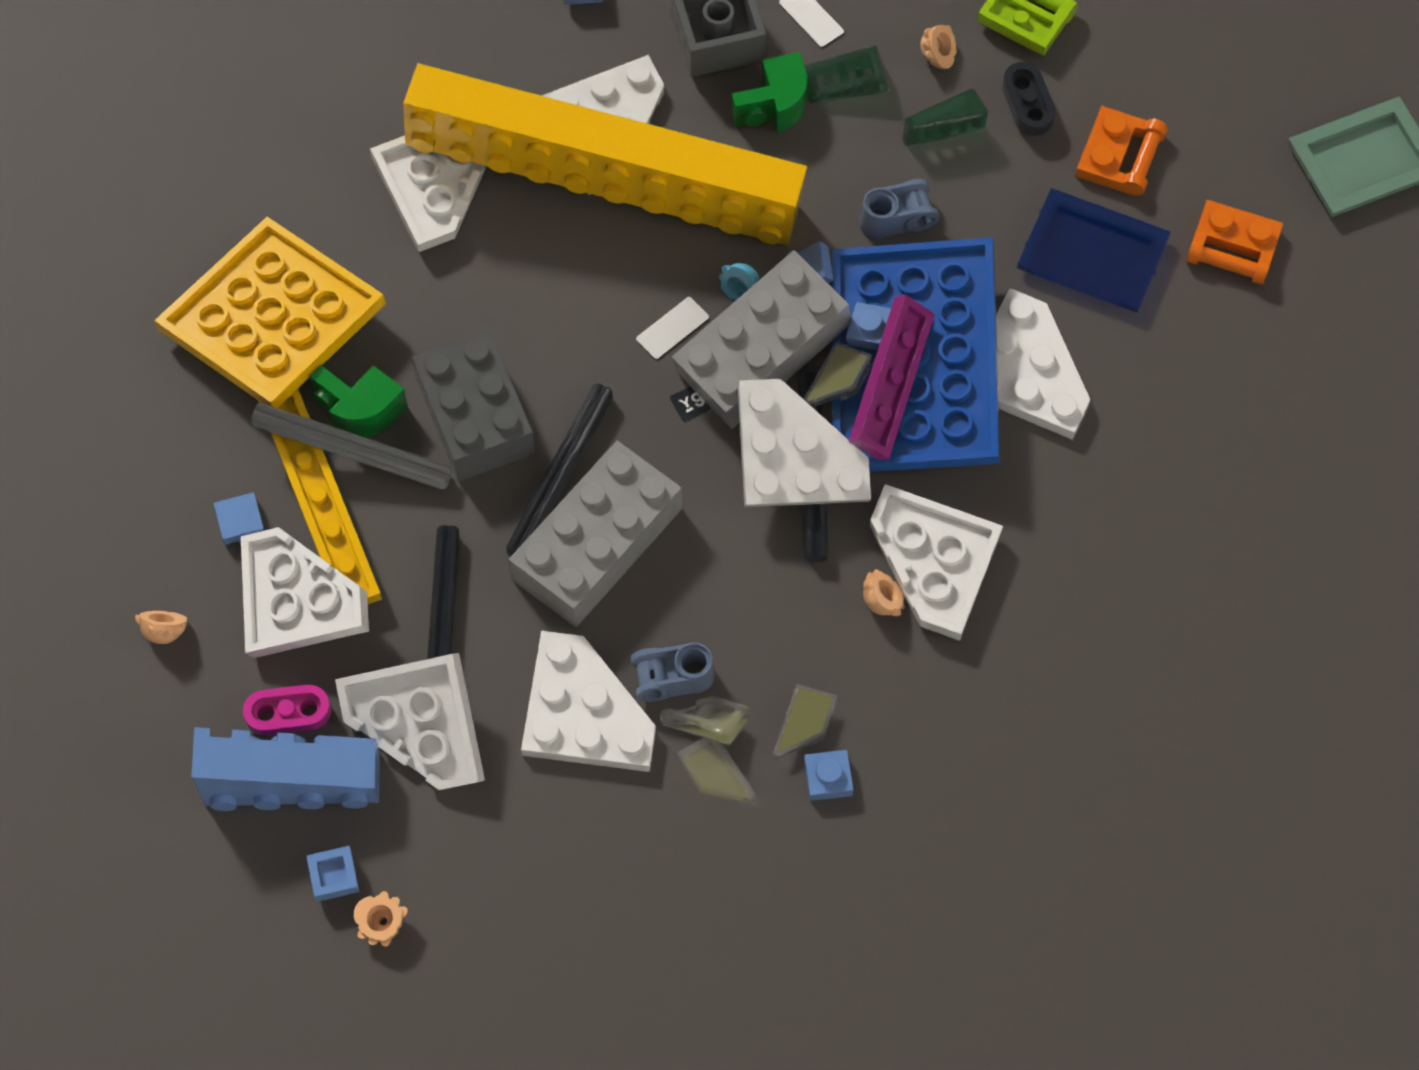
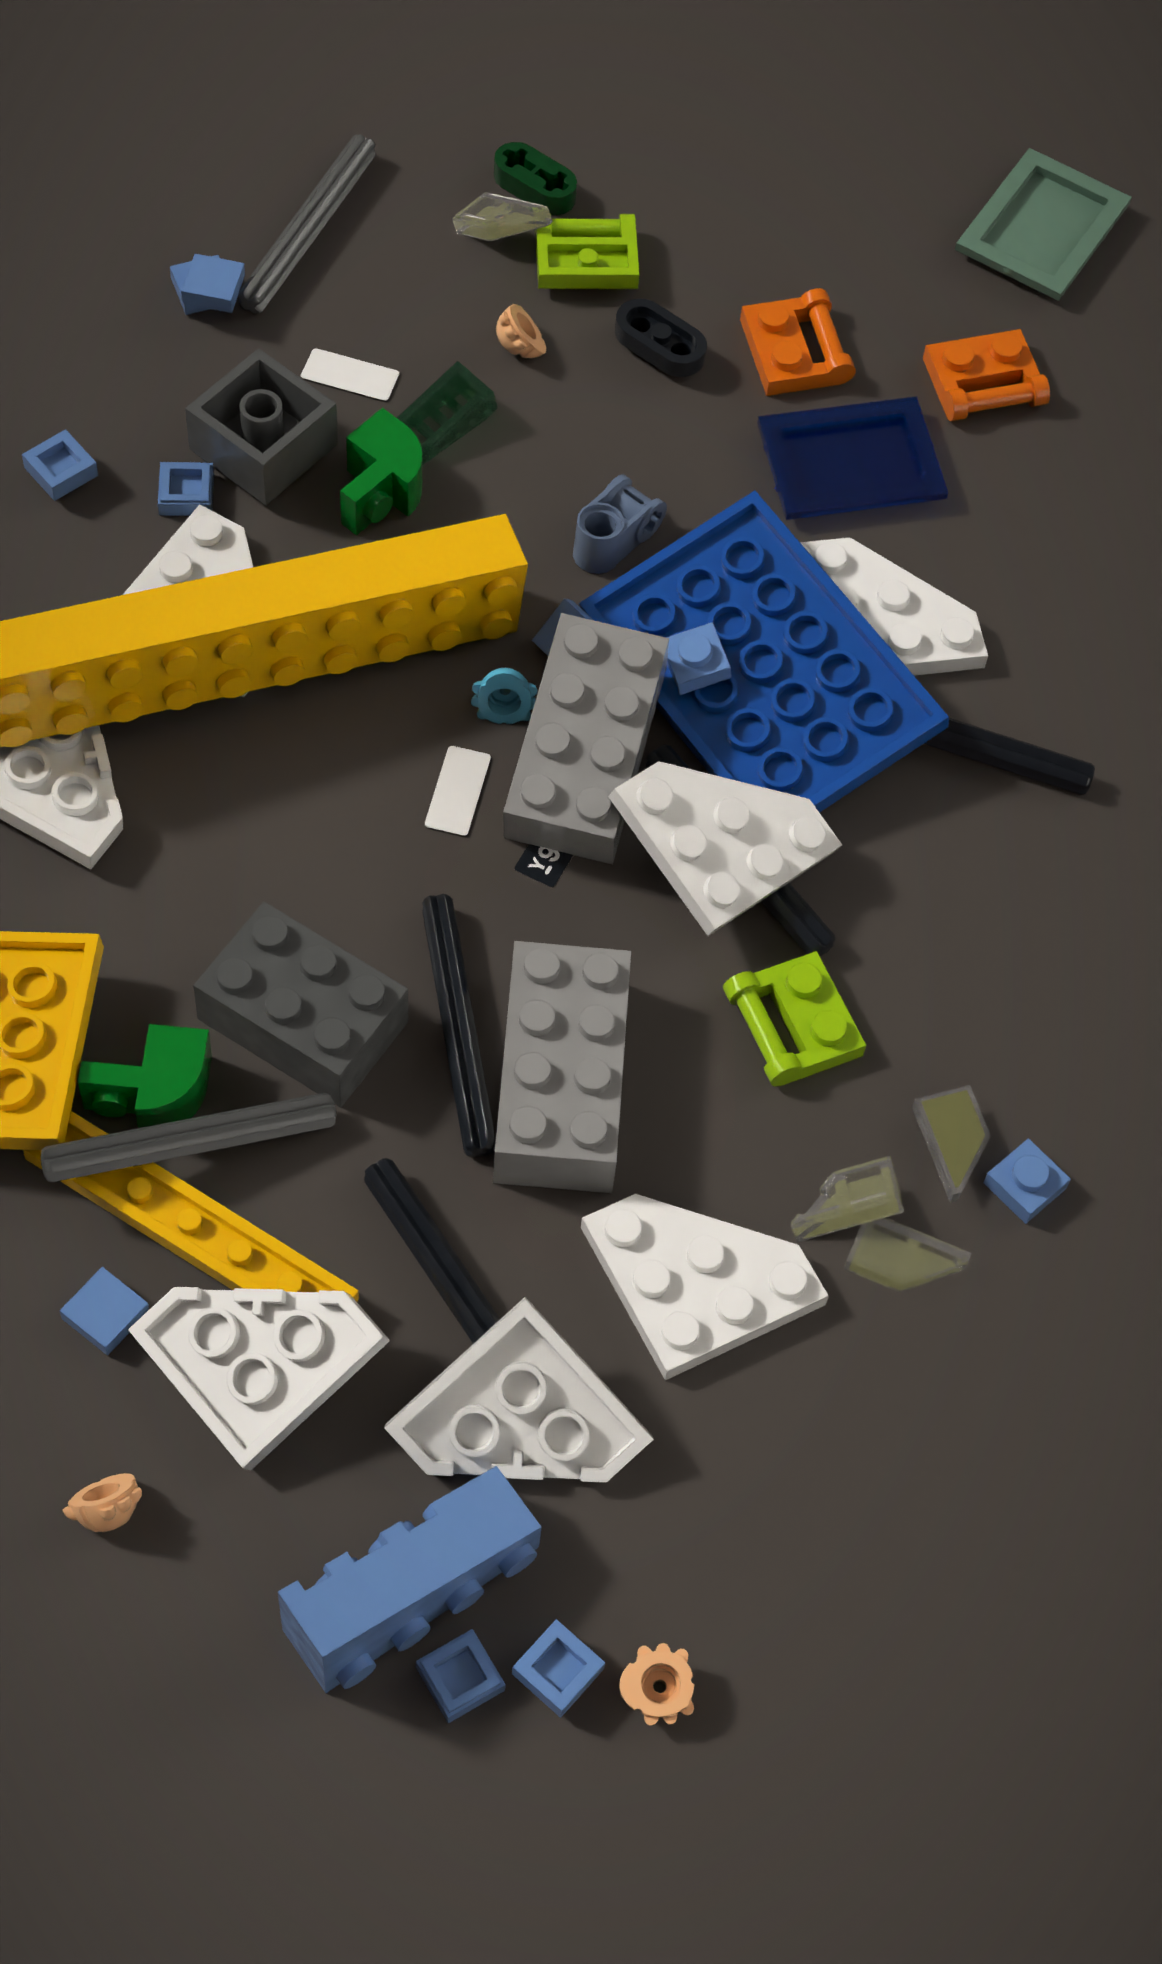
camera: 40 degrees left, 5 degrees down
(280, 843) = (460, 1676): none -> medium blue tile
(287, 706) = (345, 1507): dark pink plate -> none
(650, 39) = (185, 487): none -> medium blue tile
(669, 671) = (763, 1176): sand blue piece -> none
(777, 595) = (810, 1012): none -> lime plate
(839, 375) = (702, 727): olive tile -> none
(883, 594) = (928, 946): light nougat animal -> none
(891, 377) = (768, 697): magenta plate -> none
(935, 556) = (951, 869): white plate -> none
(948, 119) = (597, 398): clear green slope -> none
(1038, 505) = (1015, 756): none -> black axle

